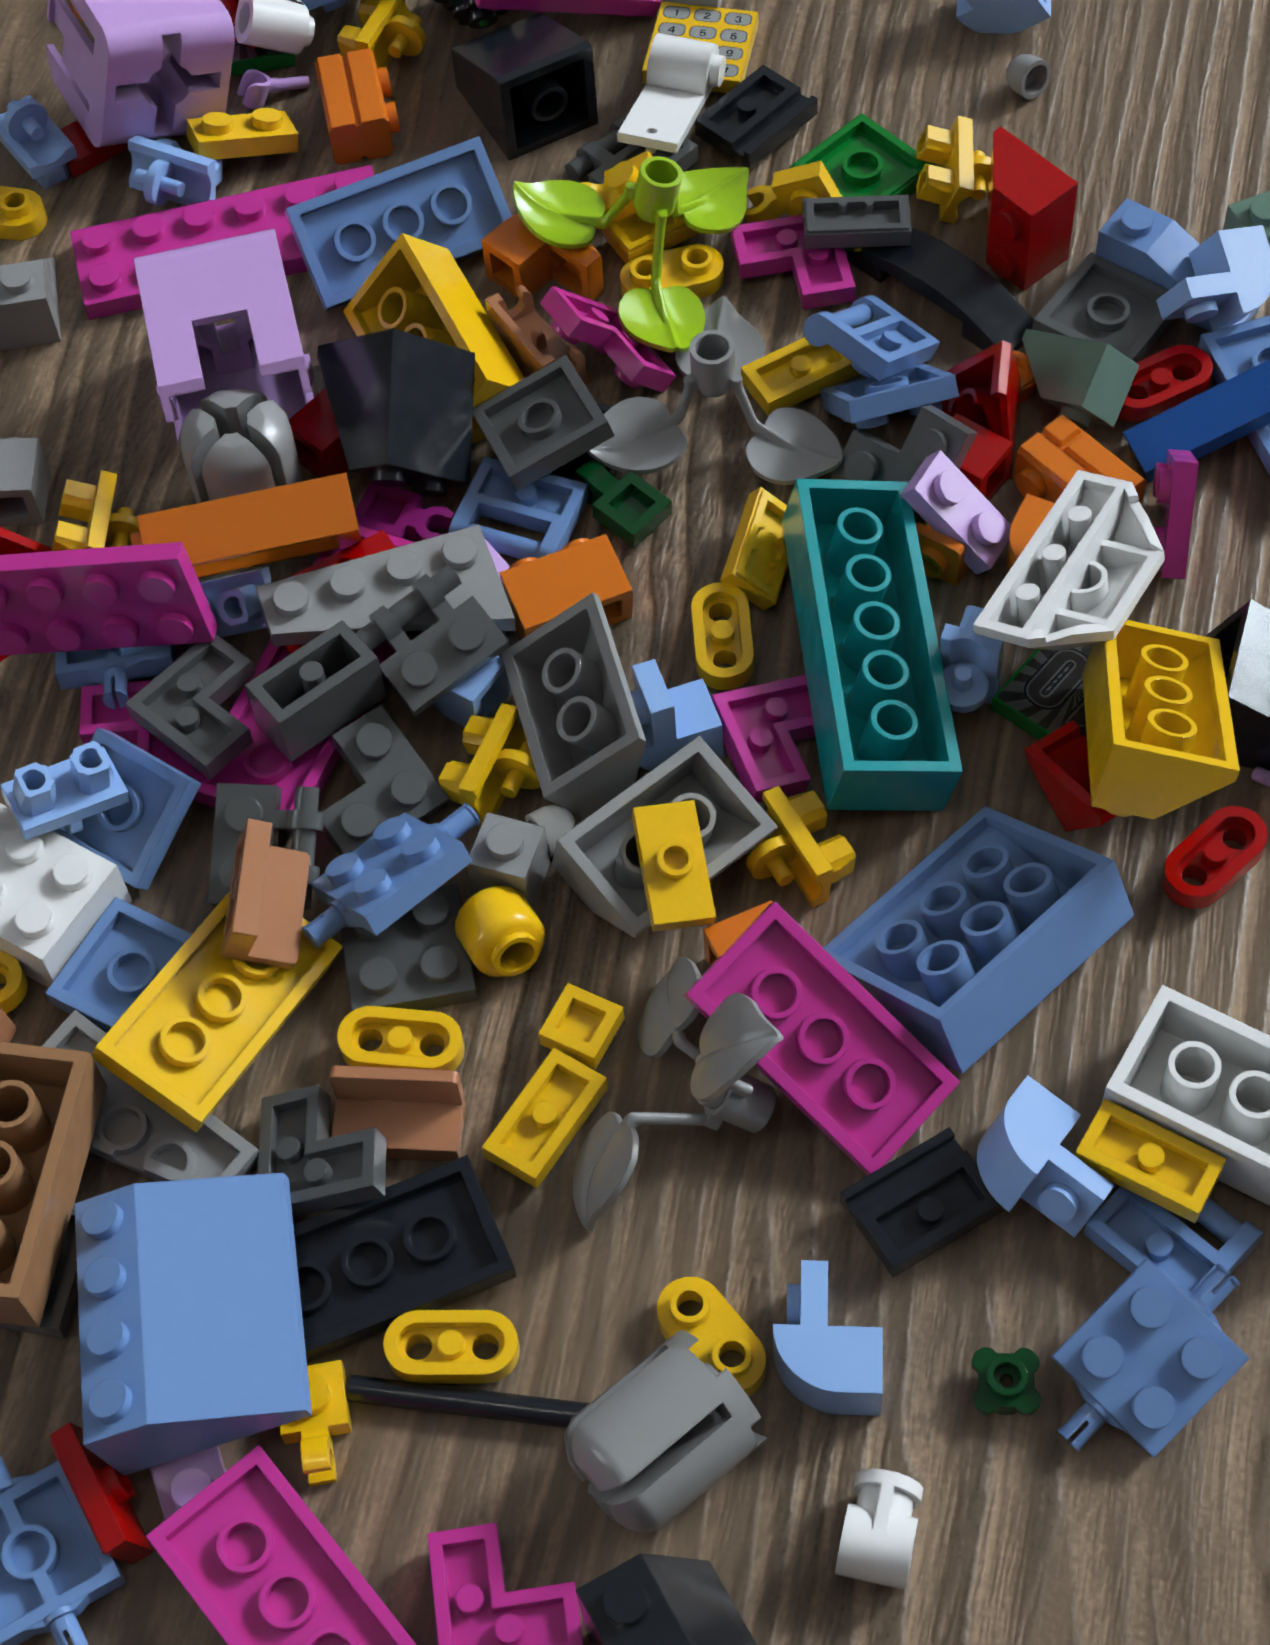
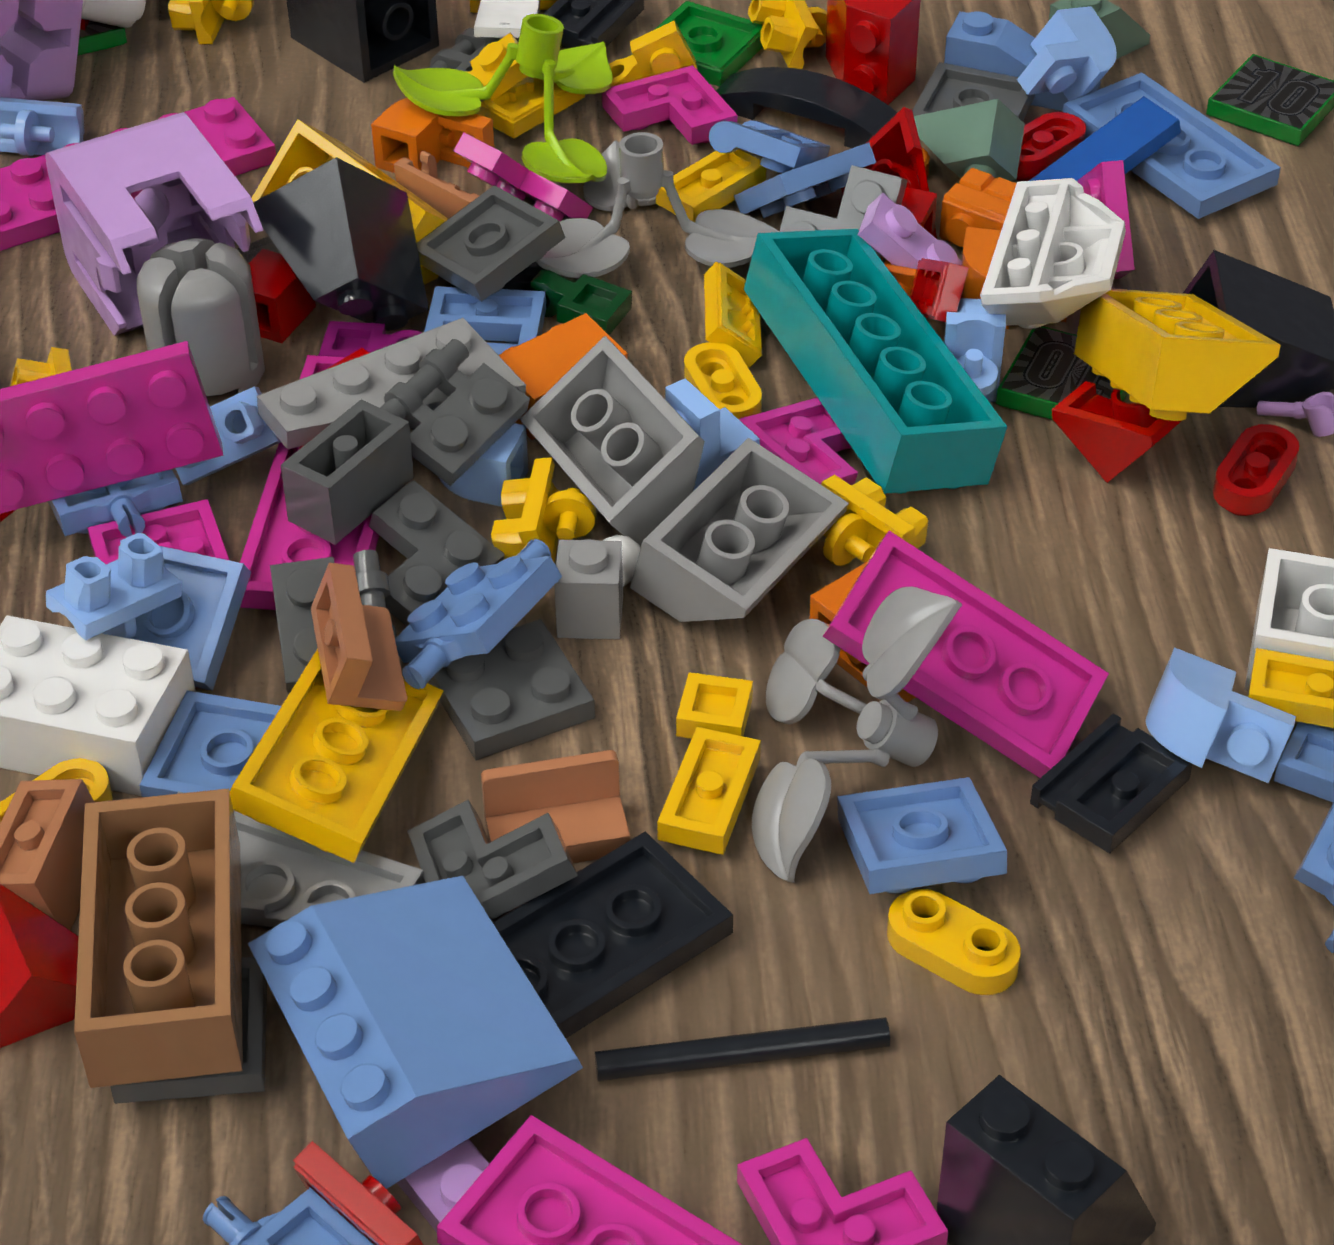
camera: 20 degrees left, 15 degrees down
(185, 710) = (215, 513): dark grey plate -> none
(242, 135) = (114, 87): yellow plate -> none
(256, 86) = (96, 56): lavender hand -> none
(258, 525) = (260, 338): orange window -> none
(328, 1419) = (578, 1105): yellow plate -> none
(355, 106) = (203, 55): orange brick -> none
(403, 1036) = (529, 744): yellow plate -> none
(436, 198) = (254, 121): medium blue plate -> none
(453, 1341) = (690, 1000): yellow plate -> none
(500, 931) = (602, 645): yellow head -> none
(661, 1436) = (953, 1009): light grey cylinder -> none
(673, 866) = (765, 543): yellow plate -> none
(690, 266) = (576, 122): yellow plate -> none
(715, 1222) = (921, 836): none -> medium blue plate
(824, 1364) = (1080, 930): light blue brick -> none
(856, 222) = (720, 65): dark grey plate -> none
(880, 1528) = (1197, 1056): white piece -> none
(957, 581) = (938, 288): none -> red plate
(982, 933) = (1086, 550): medium blue slope -> none
(994, 1397) = (1259, 913): dark green plate -> none

